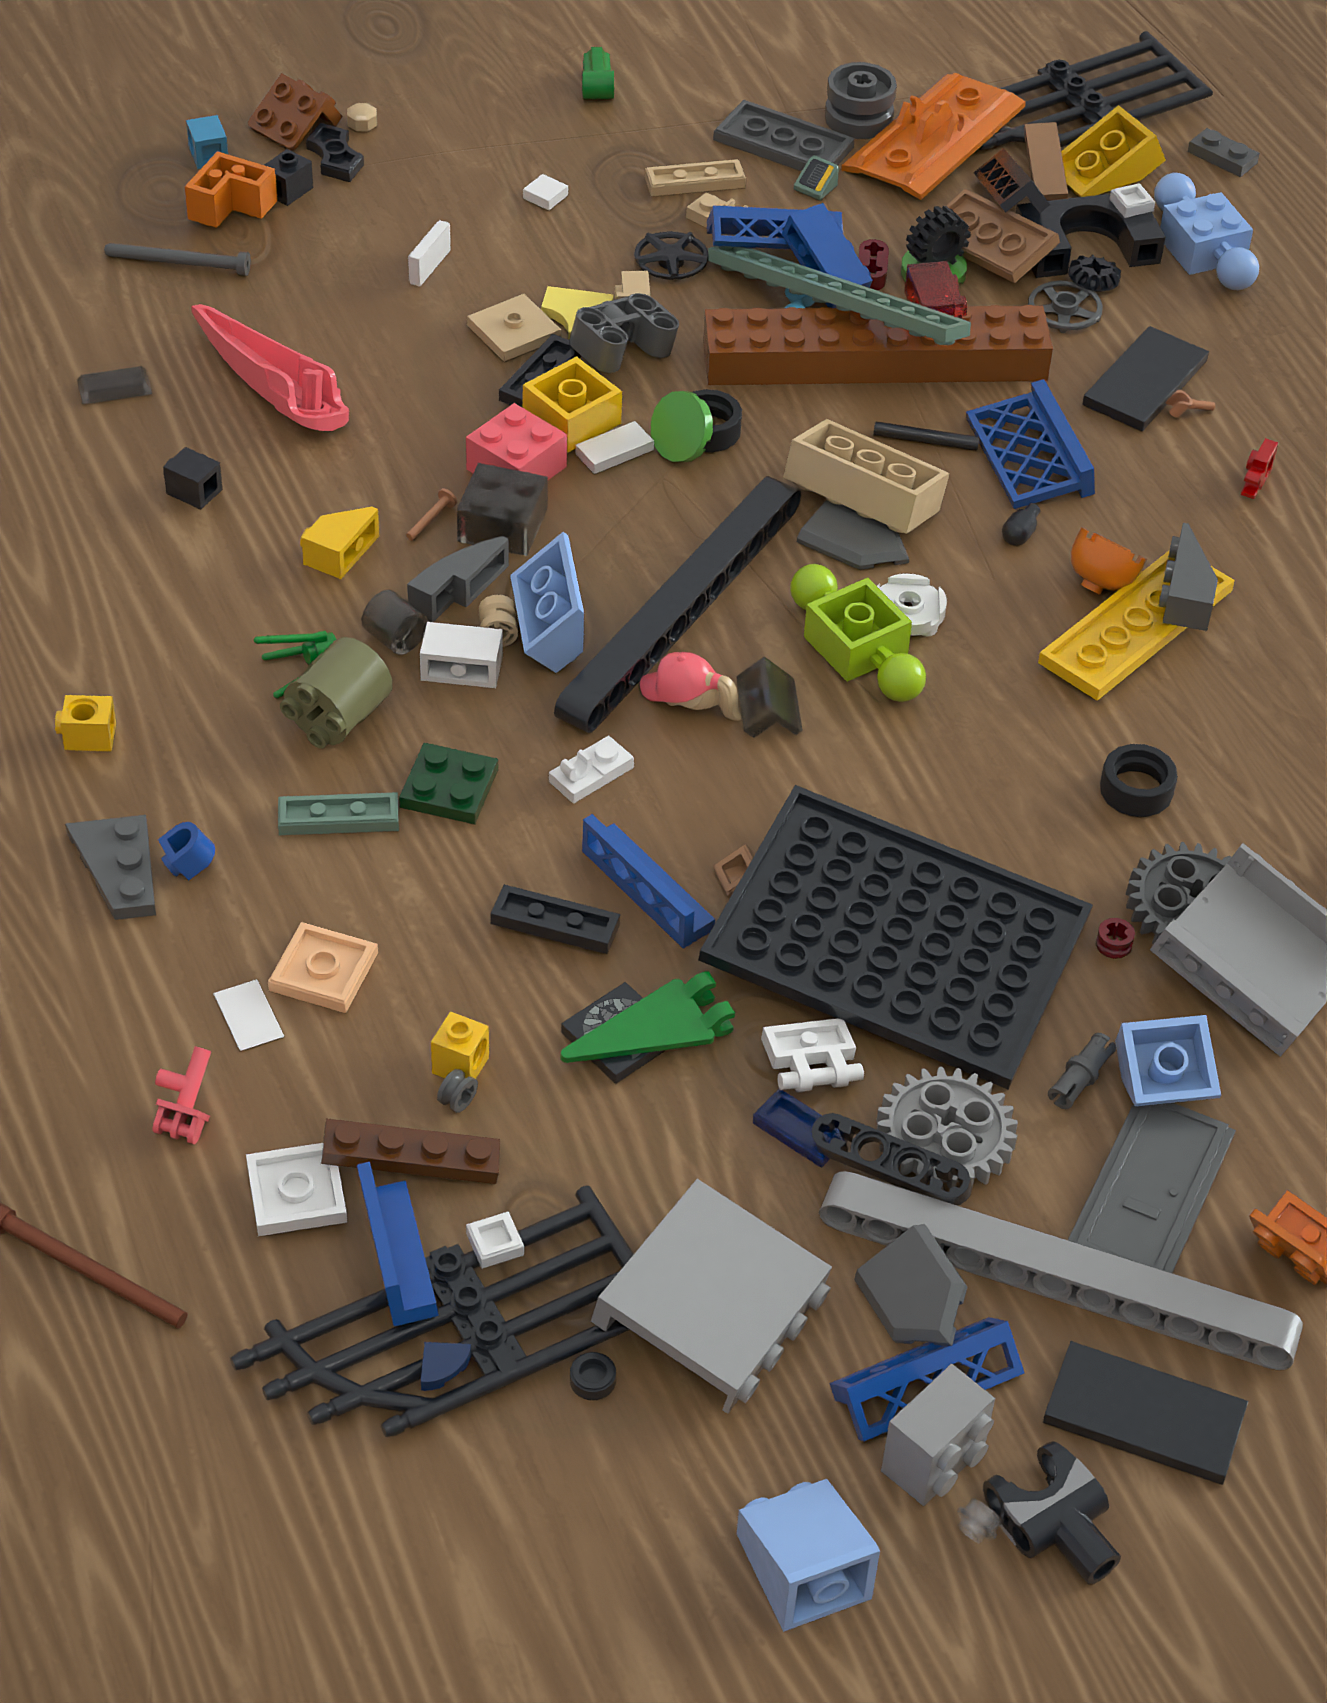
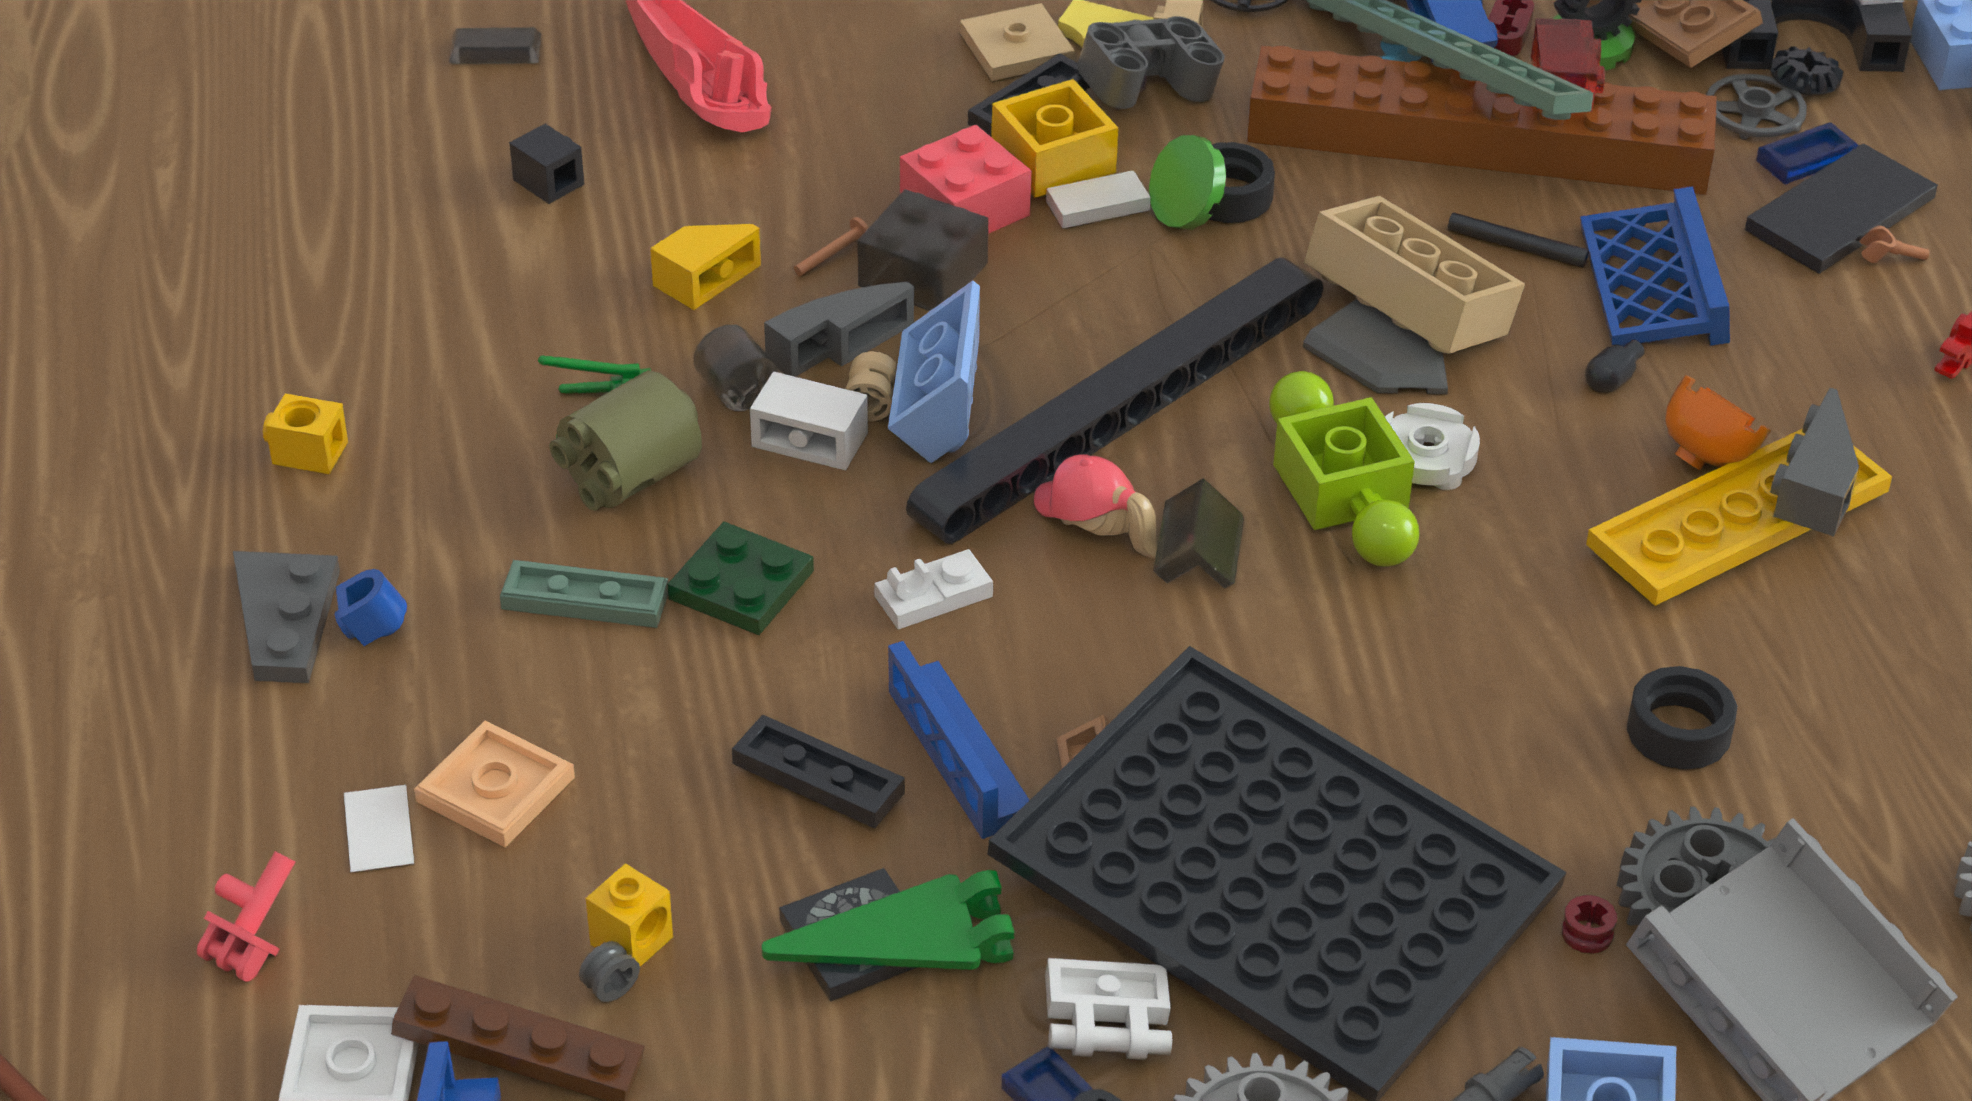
camera: 15 degrees right, 5 degrees down
(1110, 338) = (1804, 152): none -> clear blue tile

